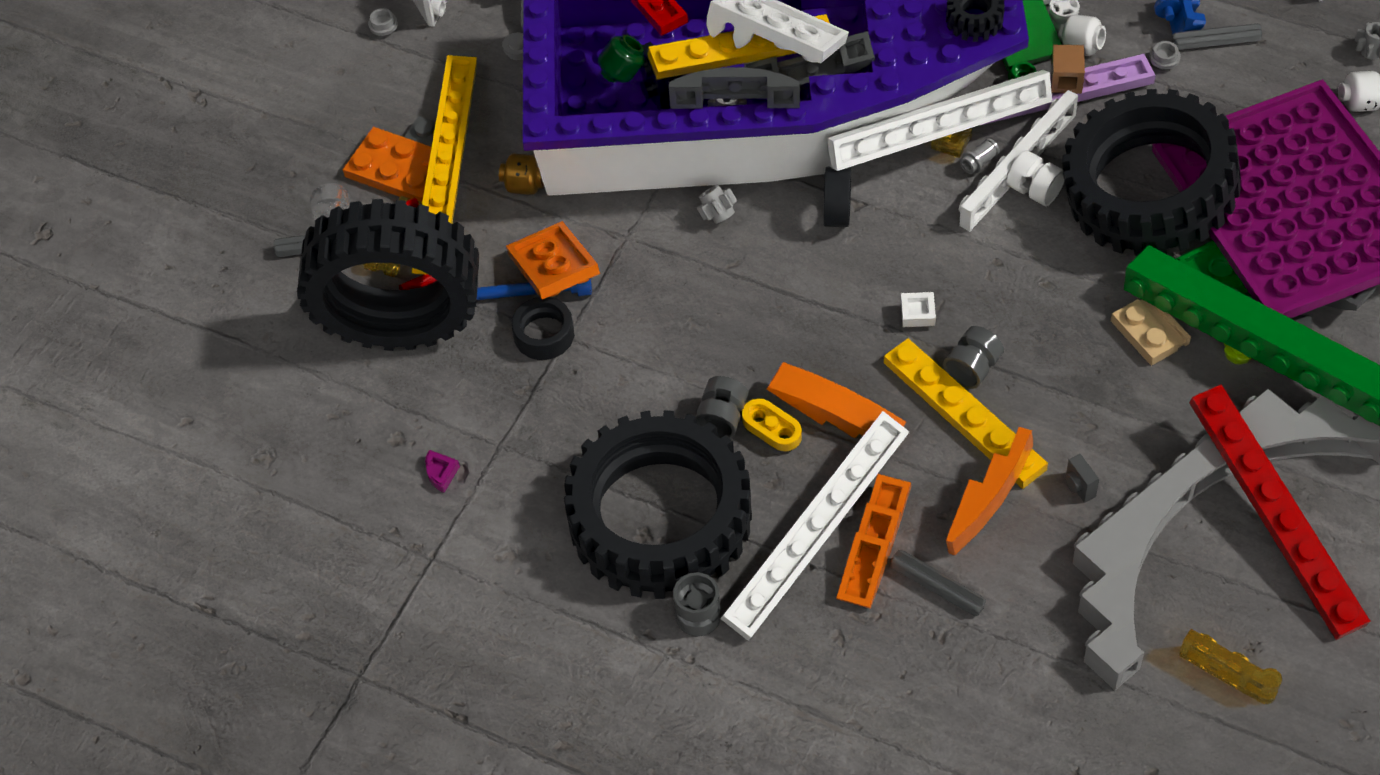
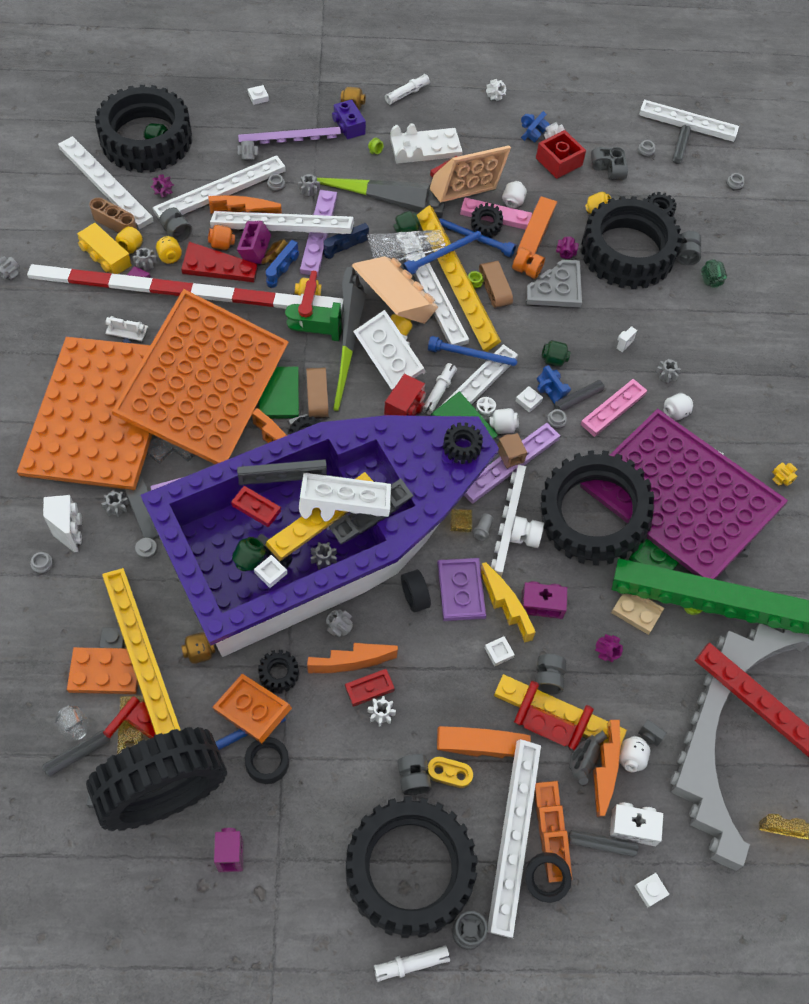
camera: 35 degrees left, 5 degrees up
(440, 469) = (246, 898): magenta tile -> none
(441, 402) = (228, 850): none -> magenta brick
(604, 615) = (408, 964): none -> white pin
(610, 221) = (272, 660): none -> black tyre
(636, 83) = (270, 571): none -> white plate
(718, 292) = (369, 687): none -> red plate
(718, 323) = (382, 705): none -> white gear
(721, 254) = (361, 657): none -> orange slope
(734, 83) = (365, 543): dark grey slope -> none
(812, 573) = (536, 892): none -> black tyre
(907, 222) = (461, 589): none -> medium lavender tile
(939, 120) = (462, 512): white plate -> none
(940, 418) = (550, 725): none -> red plate
(960, 250) = (504, 597): none -> yellow slope
(973, 467) = (585, 757): none -> dark grey piece
(975, 662) = (651, 890): none -> white plate
(996, 575) = (624, 828): none -> white brick
(1015, 269) = (554, 604): none -> magenta brick
(1041, 491) = (634, 753): none -> white head
(1083, 349) = (609, 648): none -> magenta gear
(1137, 20) = (529, 399): none -> white plate
(1261, 65) = (613, 407): none -> bright pink plate

